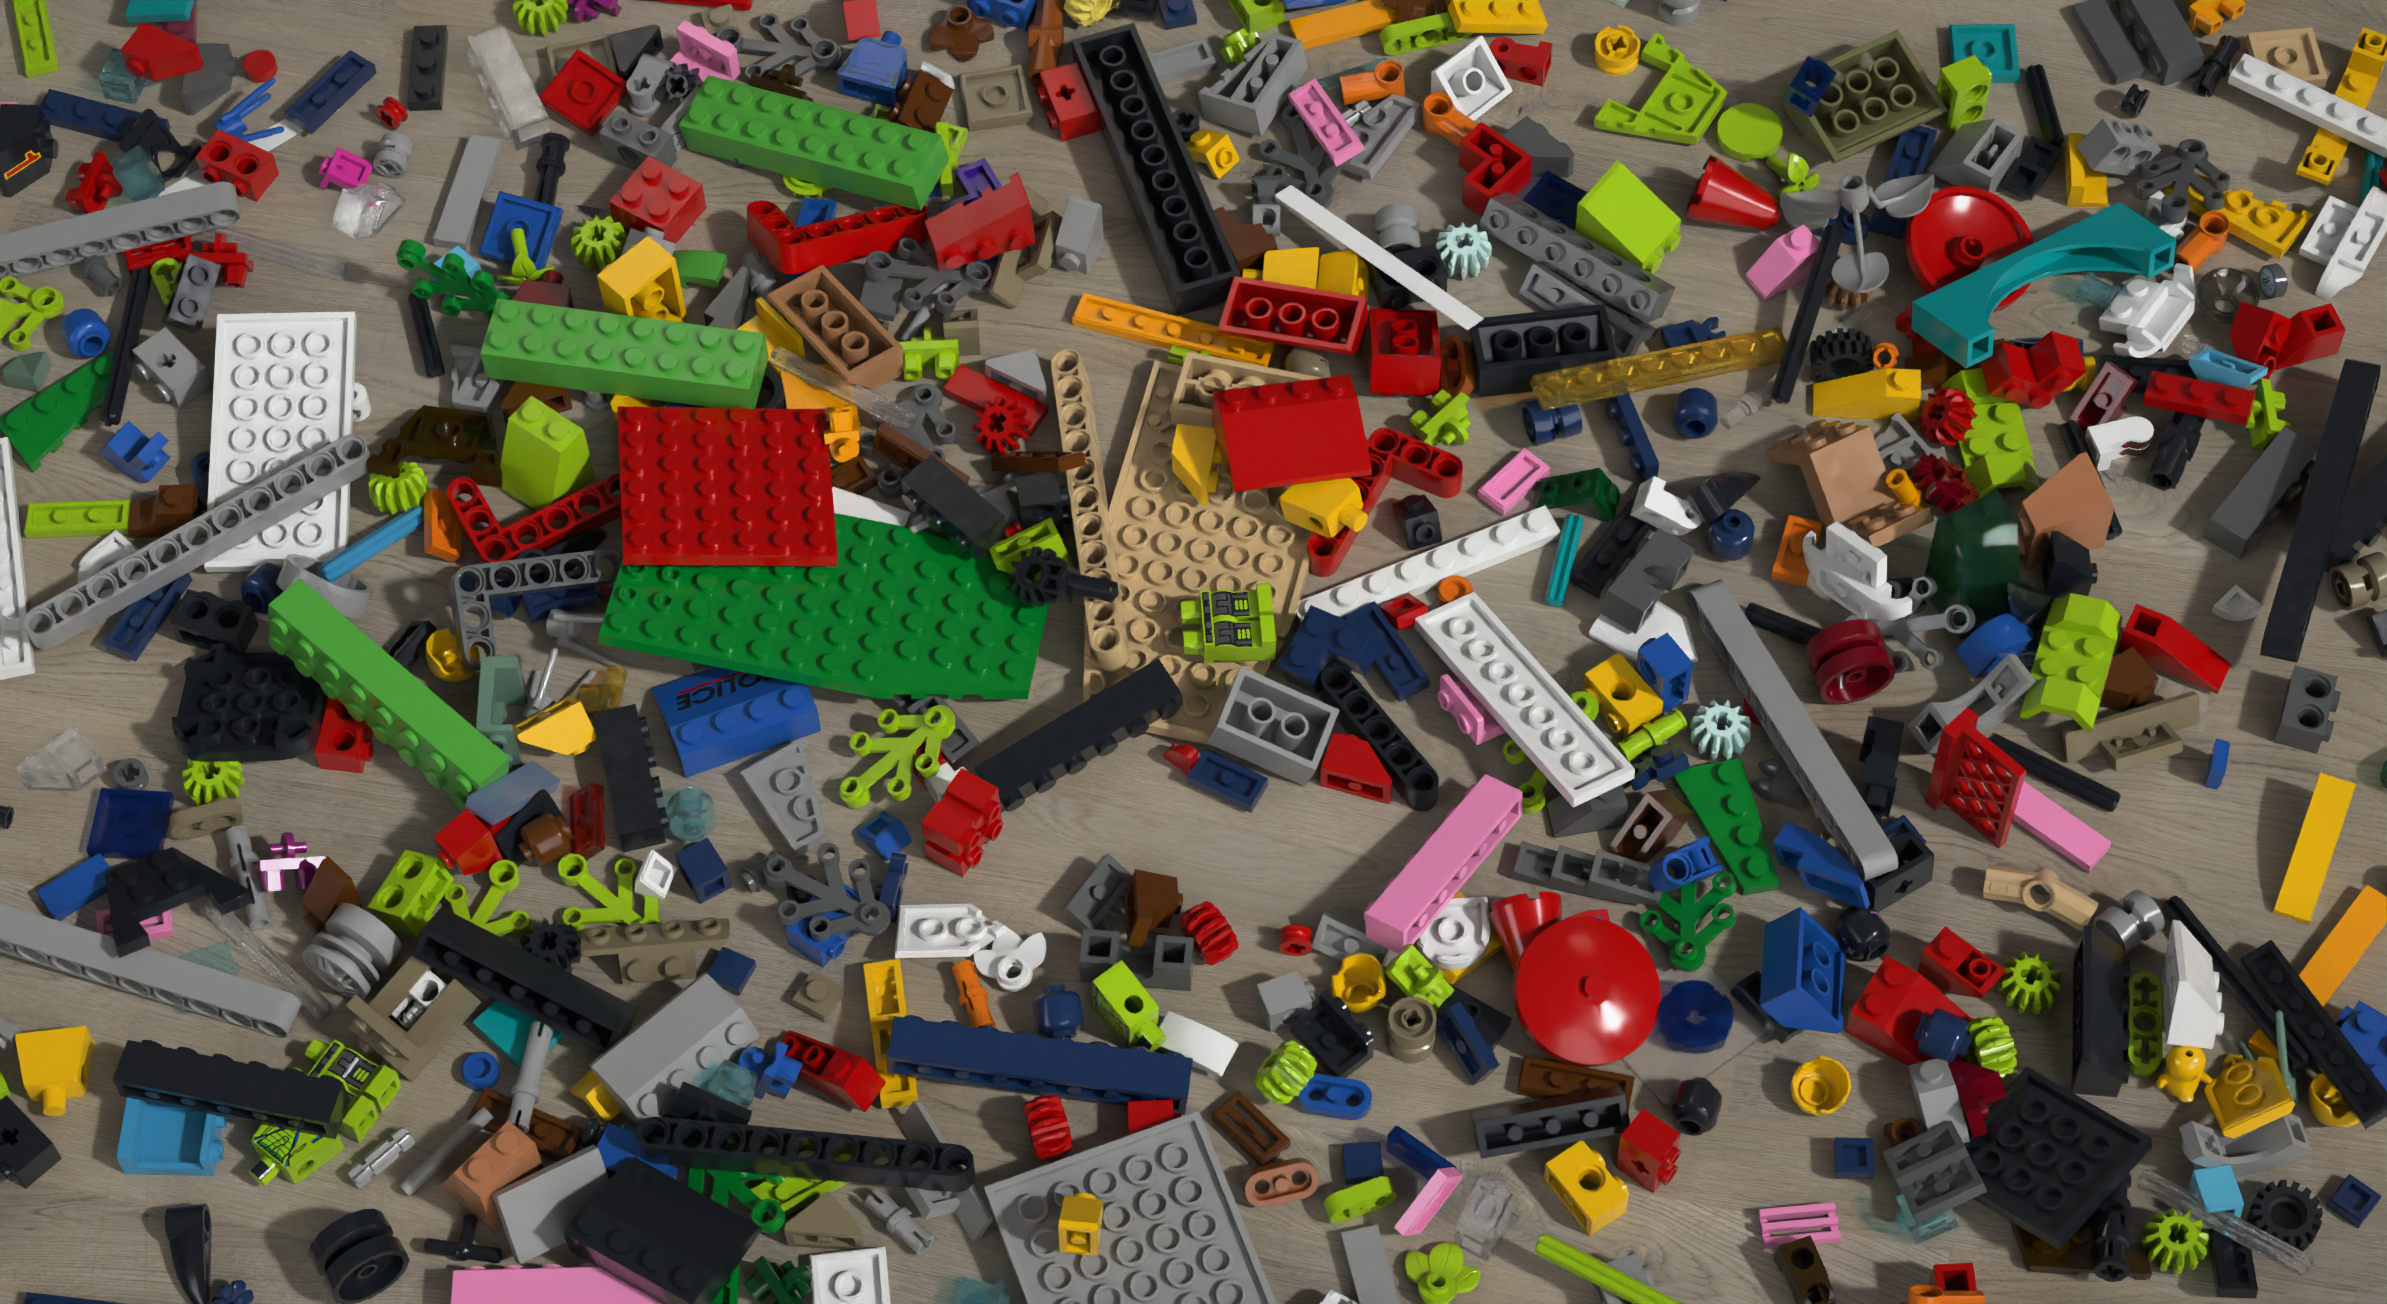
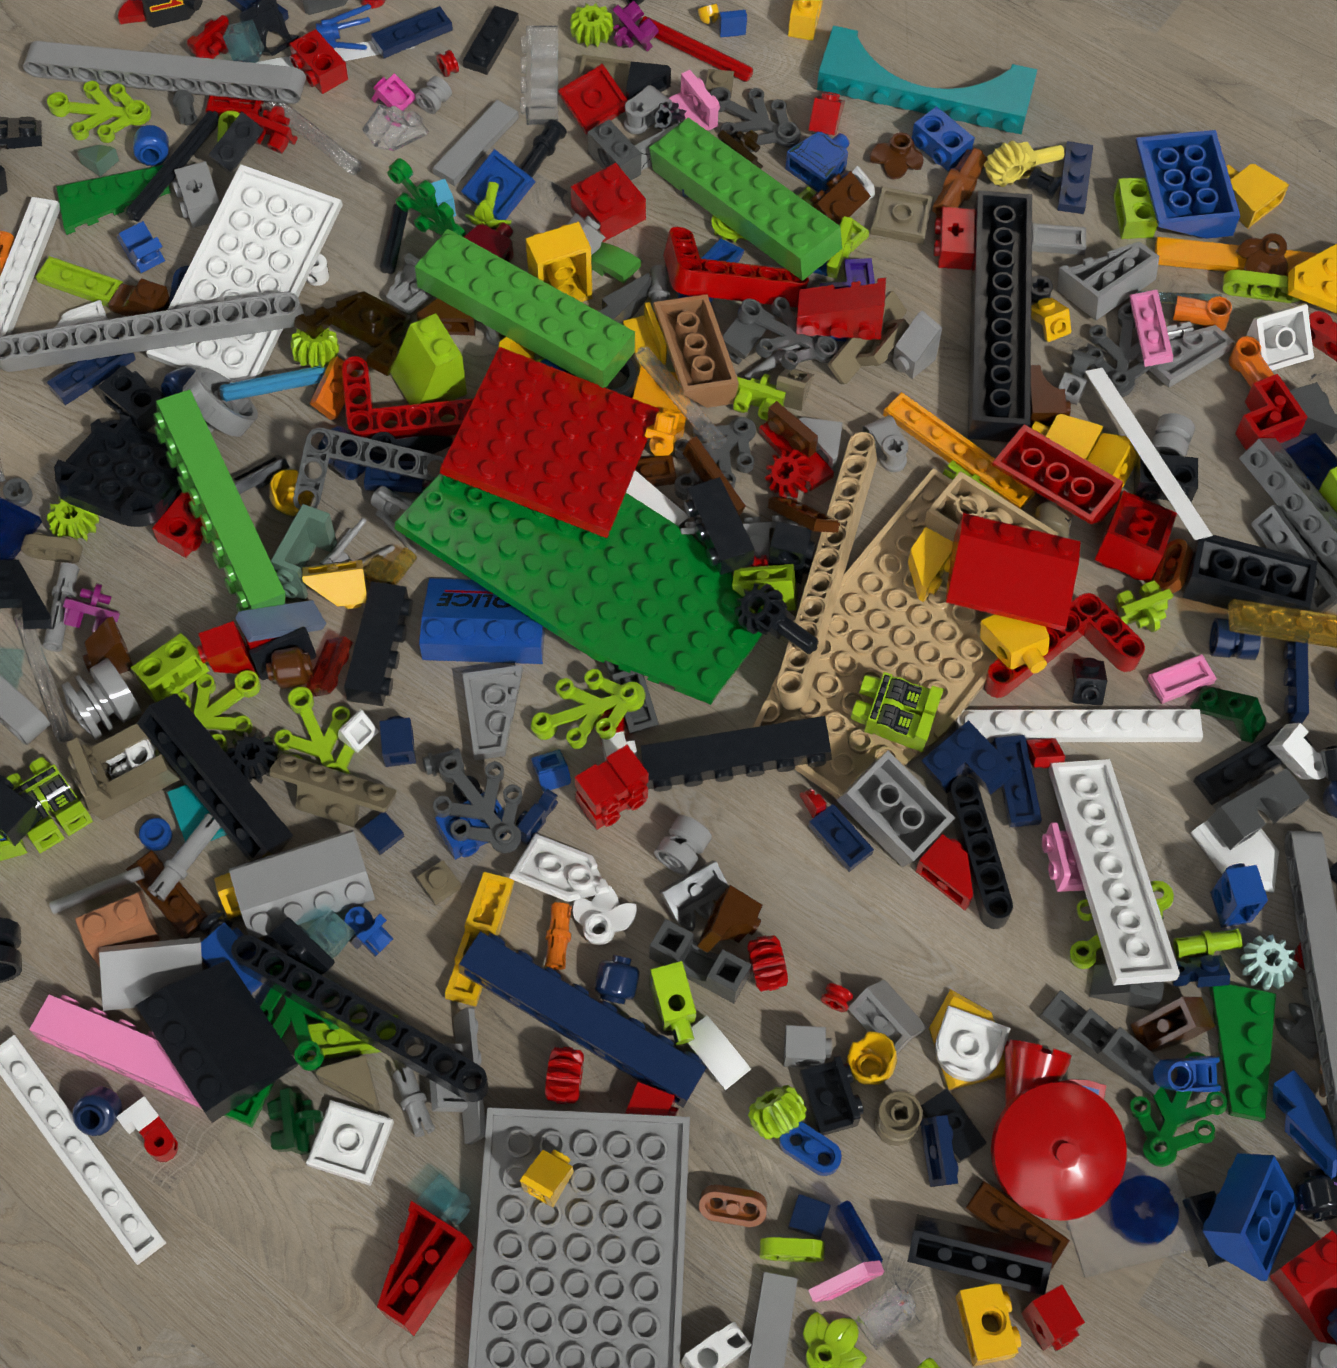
camera: 20 degrees right, 5 degrees up
(380, 1157) = (47, 873): light grey axle -> none
(464, 1247) = (72, 975): black piece -> none
(598, 242) = (550, 213): lime gear -> none
(691, 814) = (409, 692): clear light blue head -> none
(834, 1071) = (417, 949): red slope -> none
(982, 376) = (792, 429): none -> reddish brown plate
(1064, 852) = (682, 846): none -> light grey wheel
(1096, 352) = (889, 443): none -> light grey piece
(1238, 44) = (1108, 241): lime gear -> none
(1240, 1139) = (739, 1172): reddish brown tile -> none
(1418, 977) = (921, 1077): lime hips -> none
(1443, 864) = (984, 986): bright pink brick -> none
(1452, 589) = (1093, 750): orange tile -> none
(1464, 250) = (1220, 472): light aqua gear -> none
(1563, 560) = (1195, 762): teal axle -> none
(1619, 679) = (1199, 882): yellow brick -> none
(1695, 1106) = (1110, 1292): black head -> none
(1820, 1086) = (1227, 1322): yellow hair -> none

